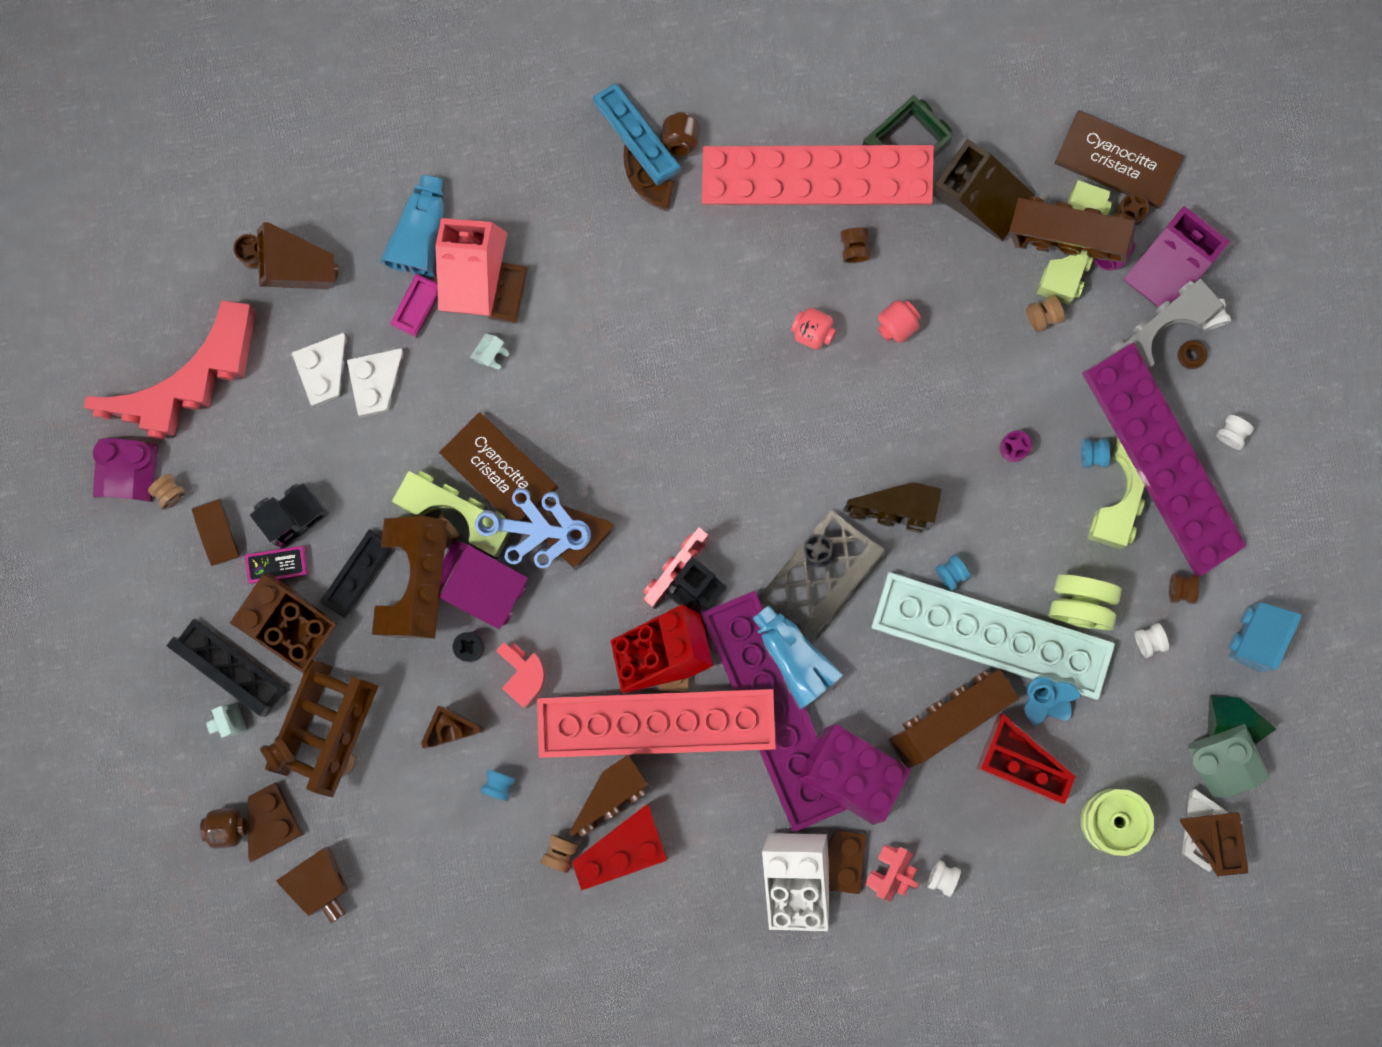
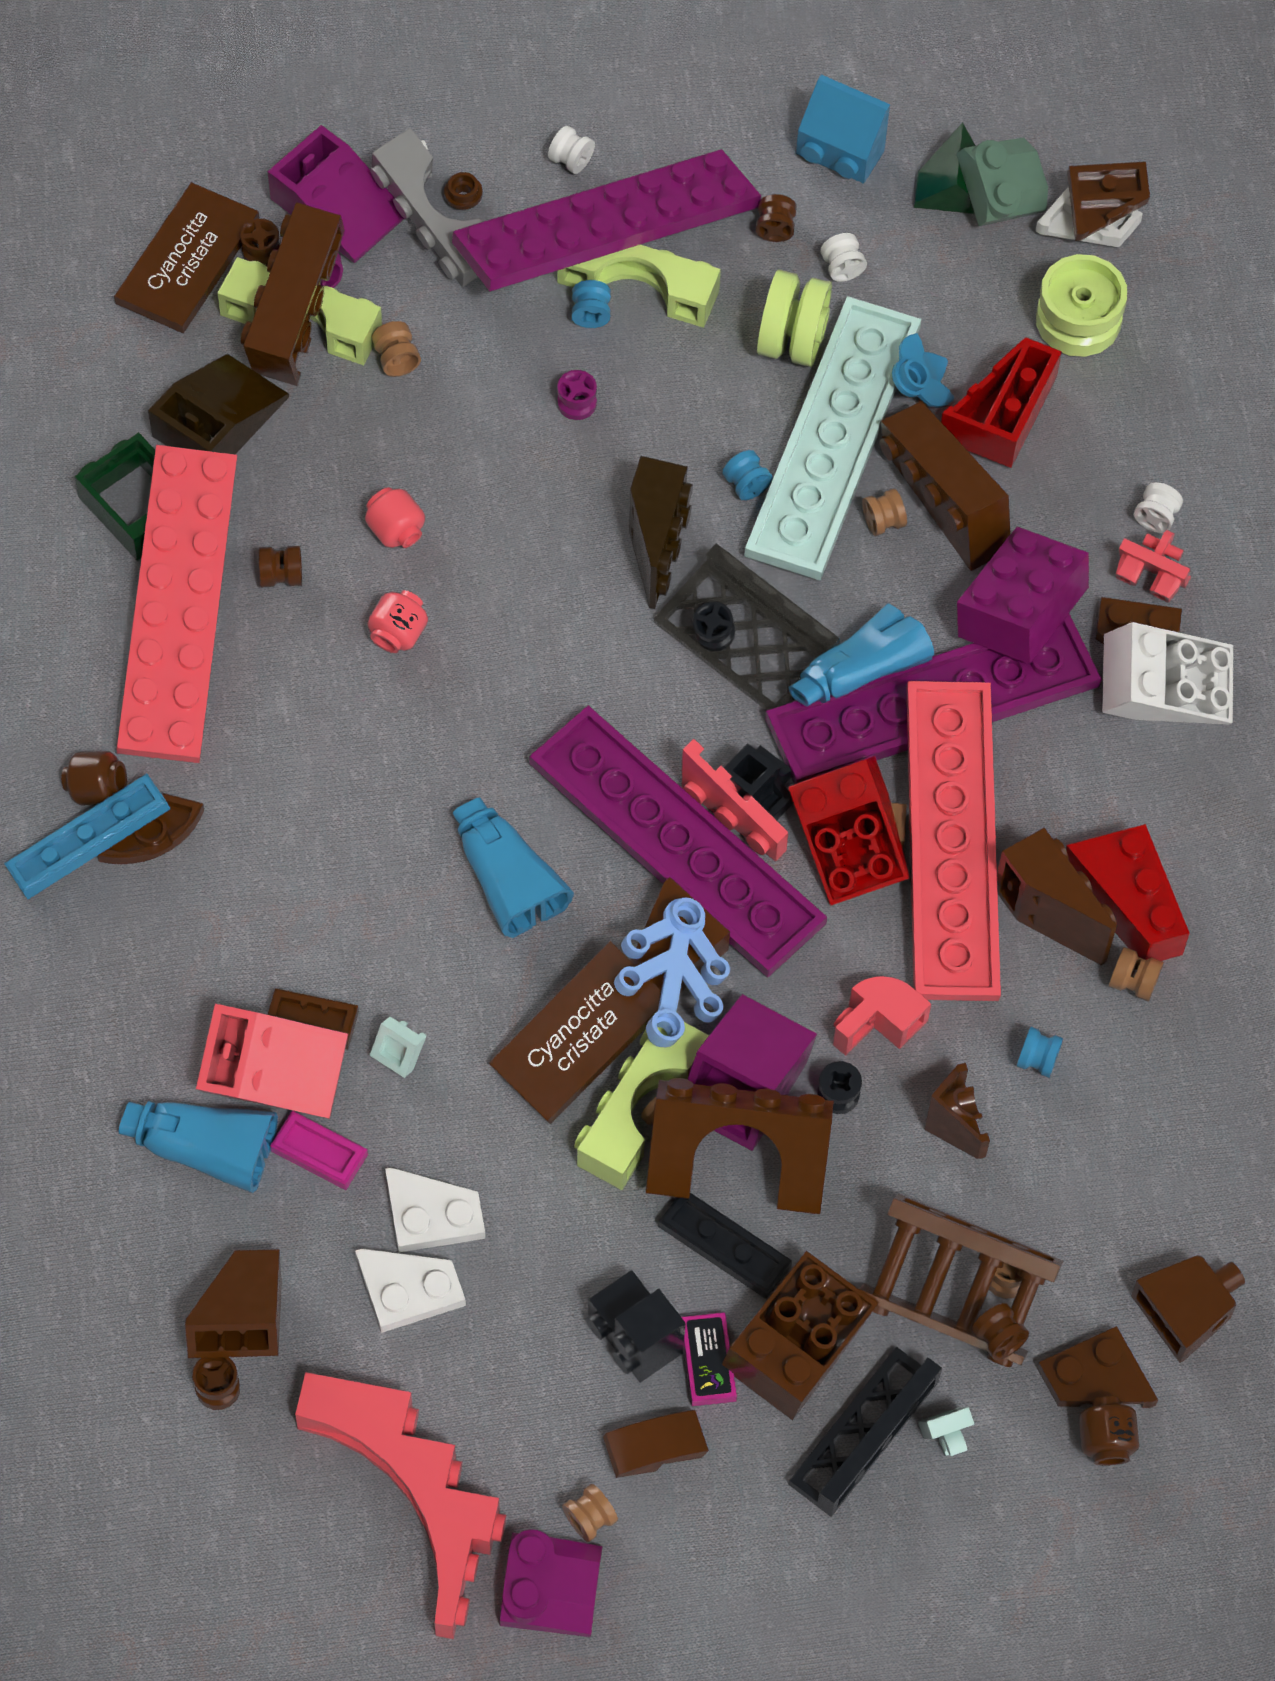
camera: 95 degrees left, 20 degrees down
(624, 416) = (509, 870): none -> dark azure piece
(652, 531) = (677, 839): none -> magenta plate
(927, 673) = (884, 512): none -> medium nougat wheel

